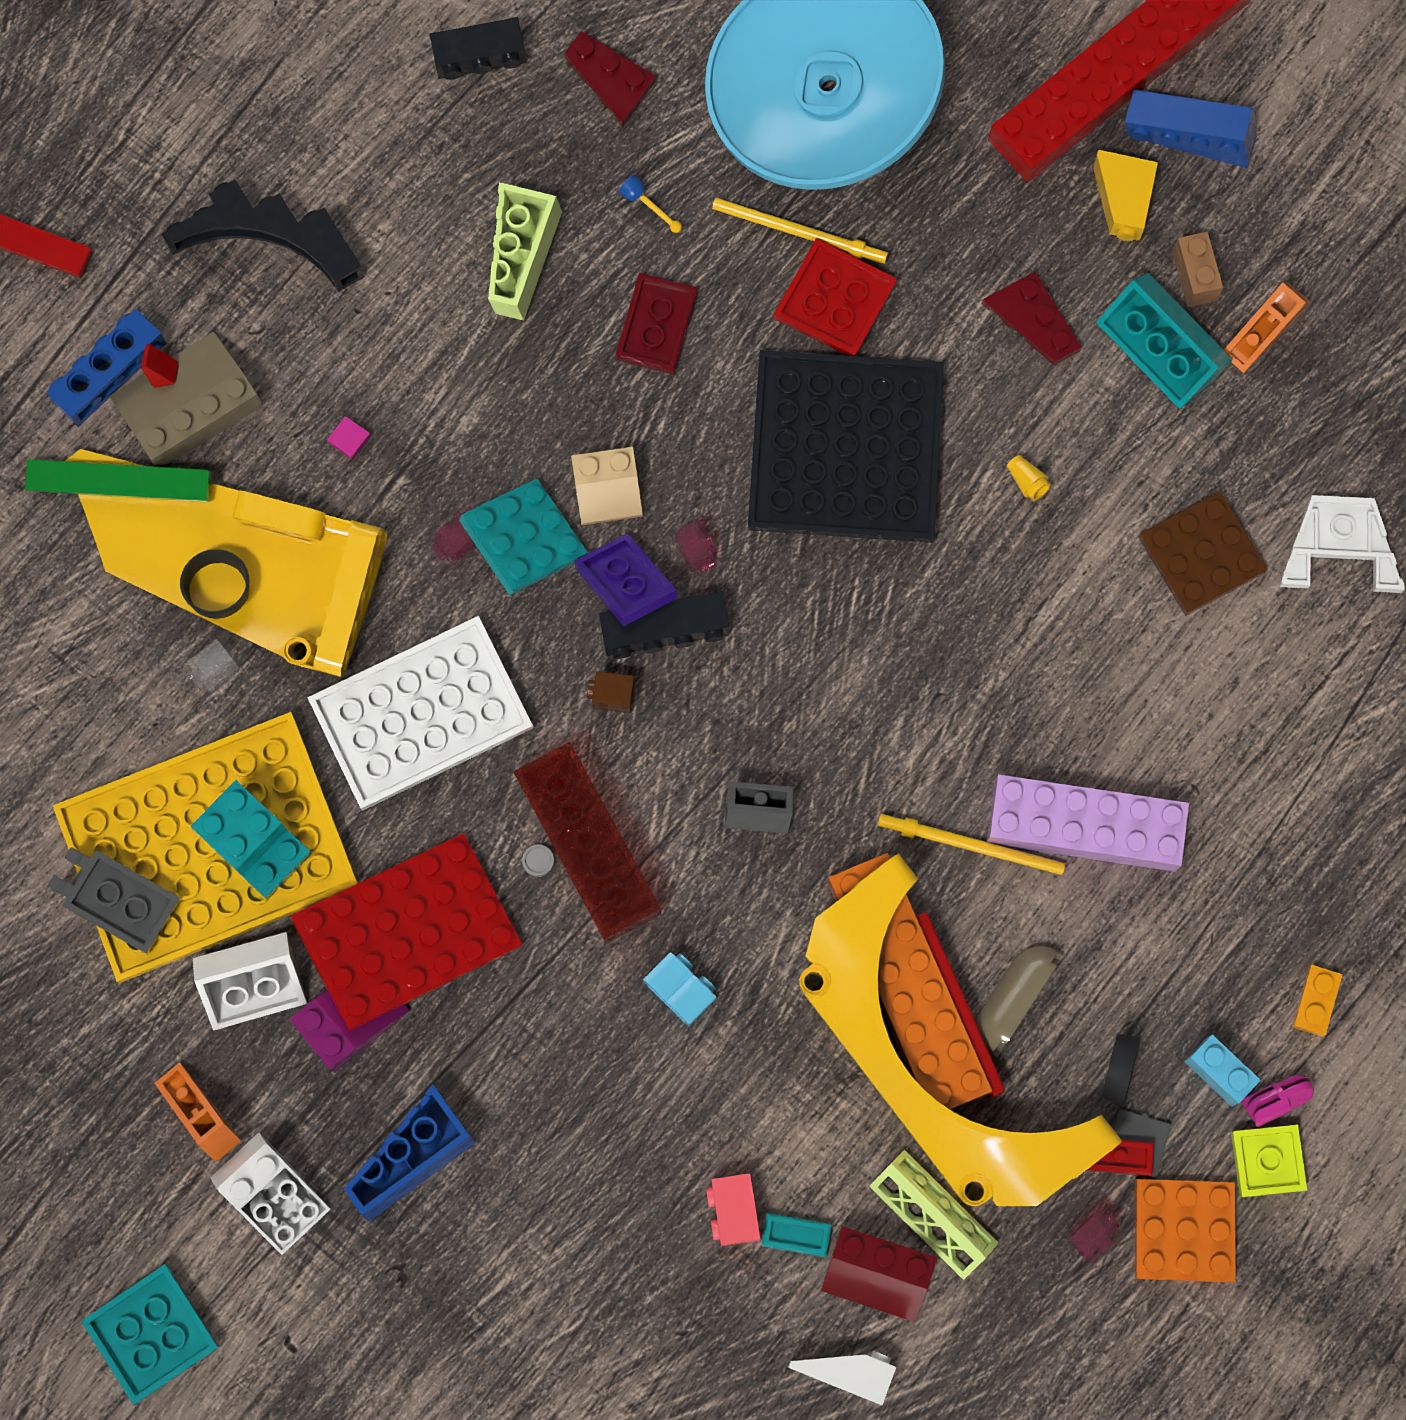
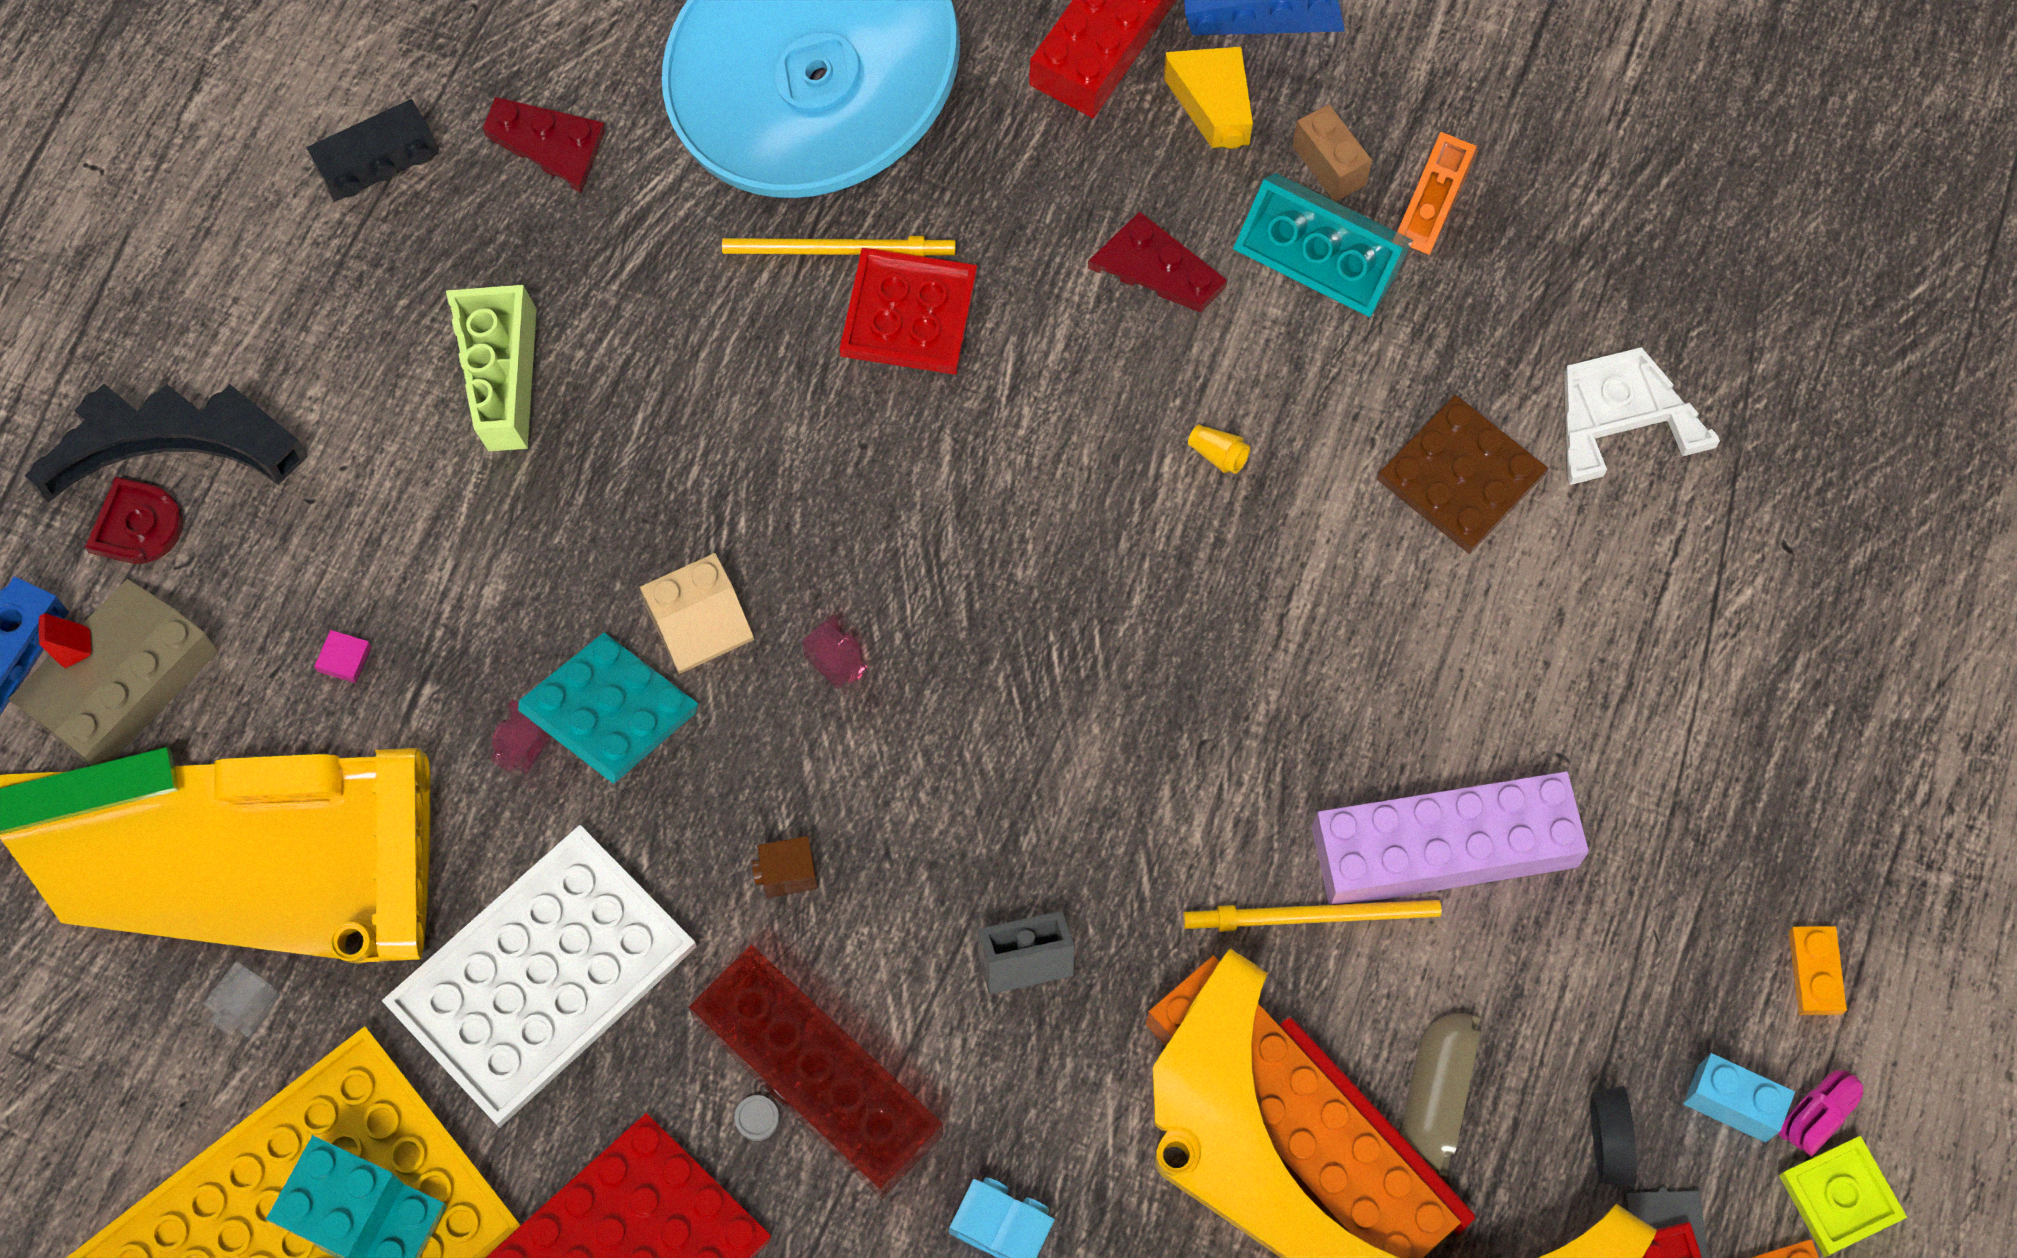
camera: 20 degrees left, 10 degrees down
(206, 558) = (195, 862): black tyre -> none
(230, 291) = (135, 523): none -> dark red tile
(625, 579) = (758, 718): dark purple plate -> none
(634, 190) = (617, 258): hinge -> none
(656, 323) = (696, 405): dark red tile -> none
(674, 623) = (825, 761): black brick -> none
(846, 446) = (982, 479): black plate -> none

